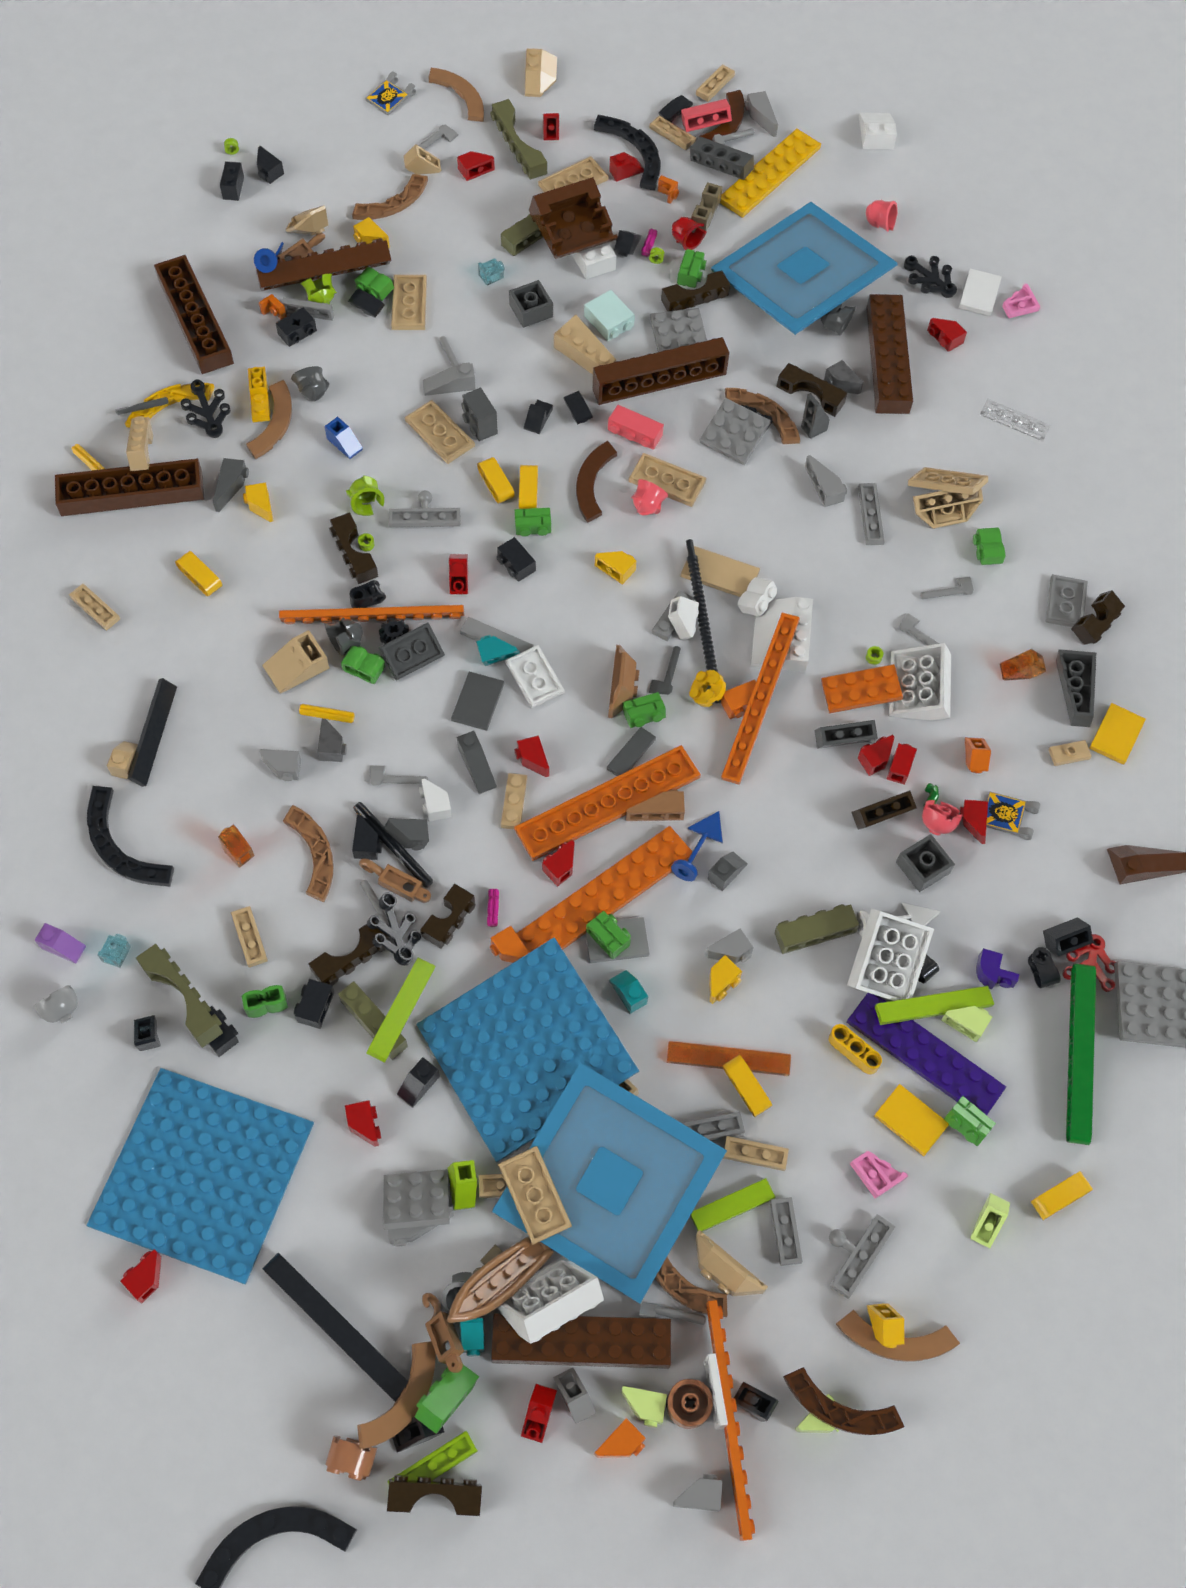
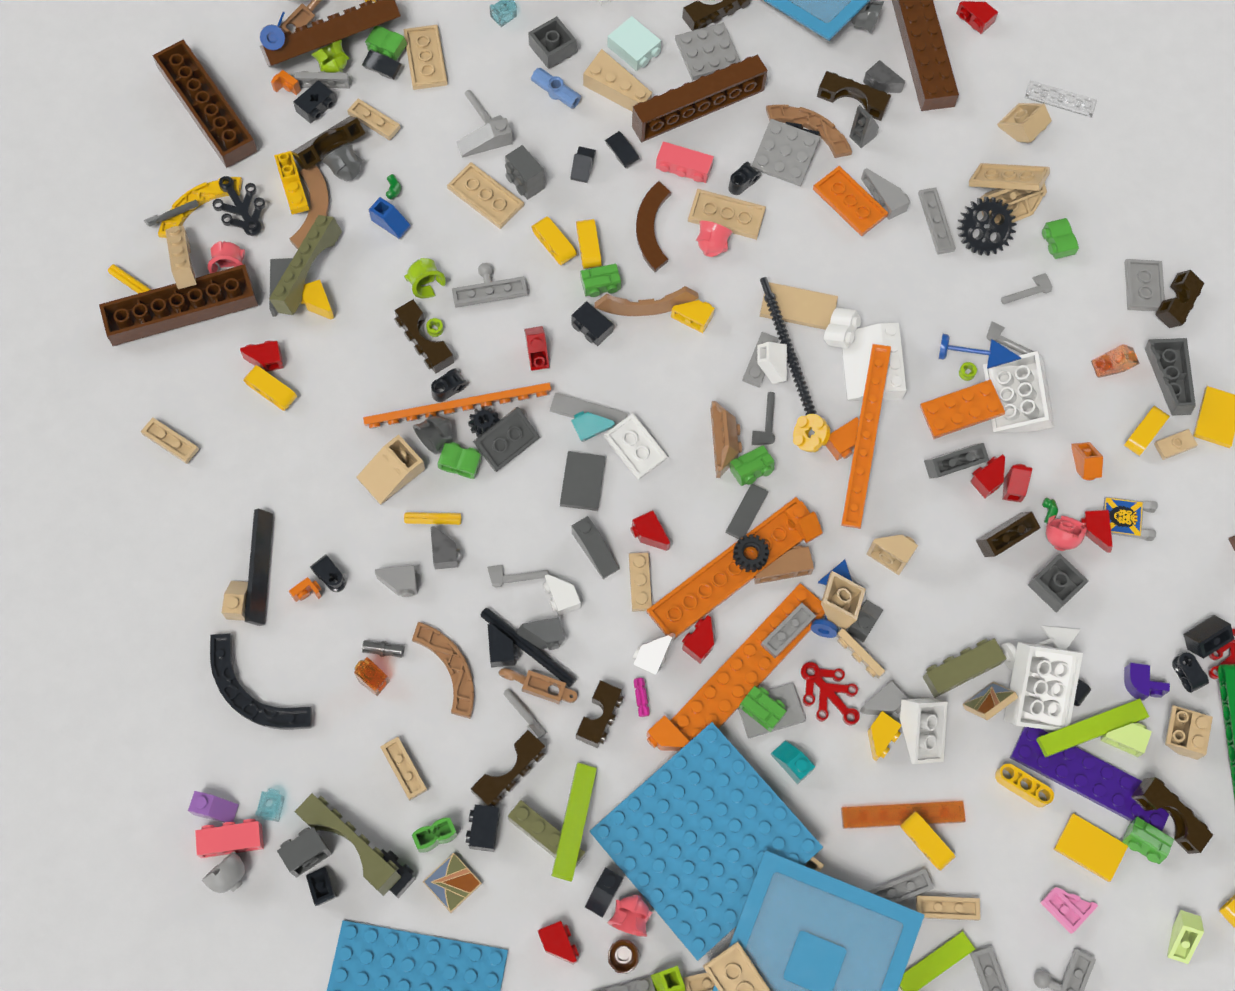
camera: 10 degrees left, 5 degrees up
(80, 974) = (229, 837): none -> coral brick
(136, 996) = (304, 851): none -> dark grey brick
(182, 449) = (225, 255): none -> coral helmet
(189, 758) = (302, 589): none -> orange bracket
(201, 543) = (264, 355): none -> red slope
(217, 748) = (327, 572): none -> black piece
(233, 488) = (289, 289): none -> olive arch
(253, 824) = (383, 648): none -> dark grey pin
(273, 1050) = (452, 883): none -> tile
(286, 368) = (316, 148): none -> dark brown arch
(348, 349) = (374, 119): none -> tan plate
(355, 412) = (394, 188): none -> green arm
(394, 931) = (550, 740): black plant -> none
(424, 1145) = (623, 956): none -> reddish brown hair
(439, 1108) = (631, 915): none -> coral helmet
(512, 865) = (653, 653): none -> white slope
(526, 344) = (556, 88): none -> medium blue piece
(570, 552) = (645, 307): none -> medium nougat tile
(625, 799) = (756, 543): none -> black tyre
(647, 865) = (788, 630): none -> light grey plate
(678, 930) = (827, 691): none -> red plant
(684, 768) = (804, 521): none -> orange slope
(689, 449) = (745, 177): none -> black piece
(704, 844) = (842, 600): none -> tan slope
(715, 900) = (860, 654): none -> tan plate
(764, 979) = (924, 729): none -> white slope
(766, 808) = (893, 551): none -> tan slope
(789, 484) = (850, 200): none -> orange plate
(835, 962) = (990, 701): none -> tile
(904, 643) = (997, 355): none -> blue piece
(932, 528) = (1002, 229): none -> black gear
(976, 435) = (1025, 121): none -> tan slope
(1014, 1119) = (1189, 831): none -> dark brown arch
(1029, 1024) = (1188, 732): none -> tan slope
(1042, 735) = (1146, 430): none -> yellow beam

